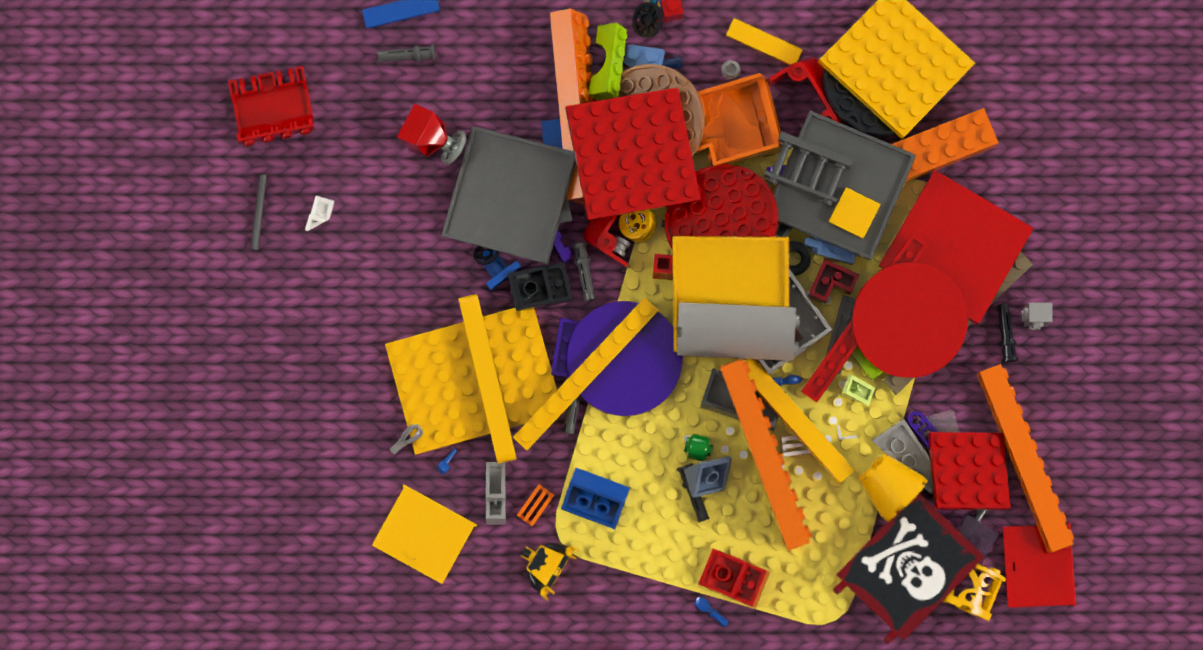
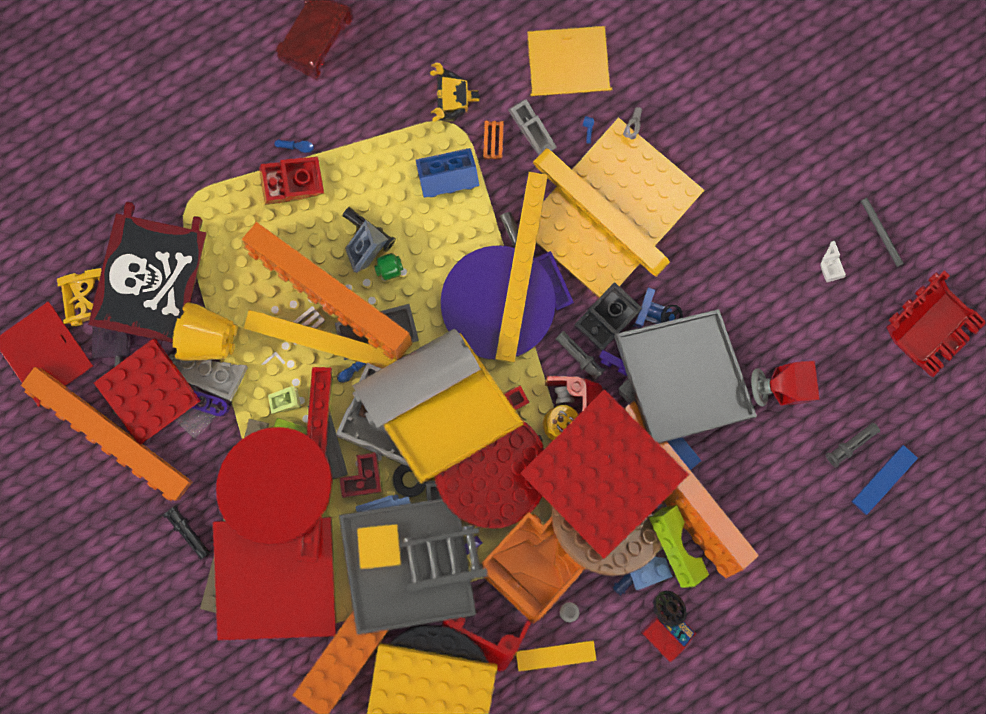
camera: 145 degrees right, 0 degrees up
(1037, 315) = (167, 563): light grey brick -> none

